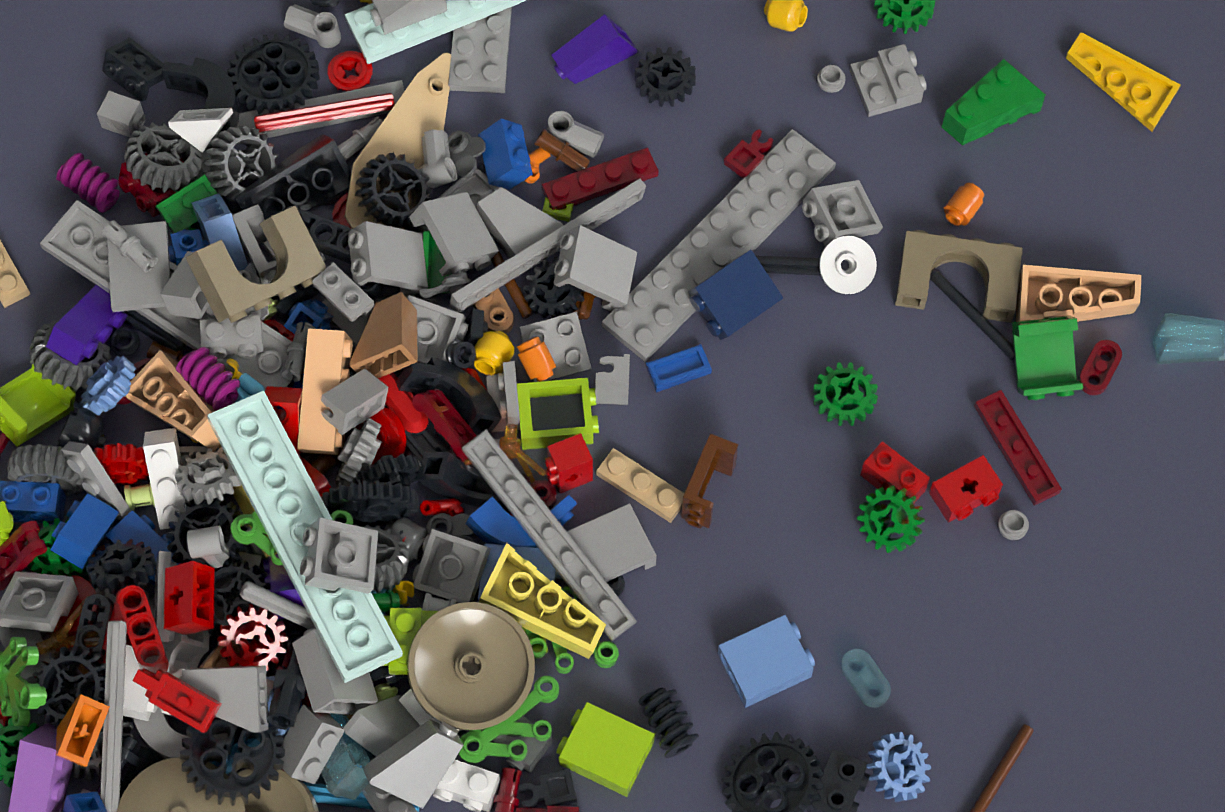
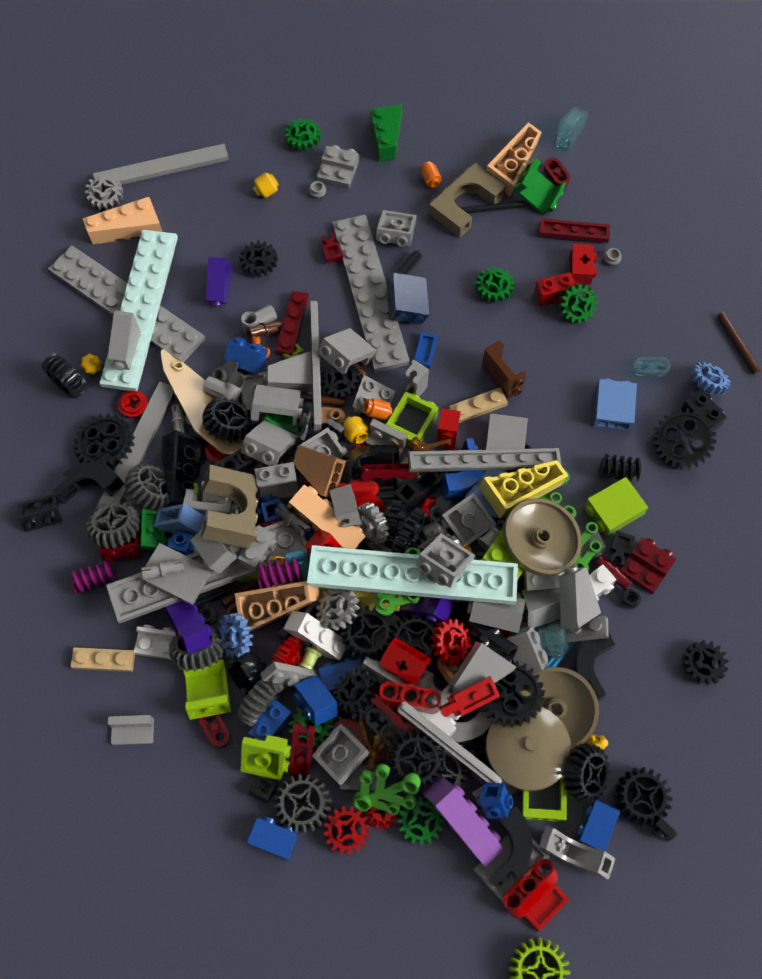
camera: 55 degrees left, 0 degrees up
(50, 300) = (154, 642): none -> white bracket
(80, 730) = (450, 768): orange slope -> none
(121, 114) = (63, 535): light grey brick -> none
(200, 125) = (111, 492): white slope -> none
(208, 545) = (386, 628): light grey piece -> none
(276, 604) = (445, 613): light grey axle -> none
(313, 25) = (89, 405): light grey piece -> none
(324, 112) = (149, 429): axle -> none
(467, 357) = (347, 443): black bush -> none
(861, 265) = (426, 241): white dish -> none
(1128, 82) = (418, 72): yellow wing -> none

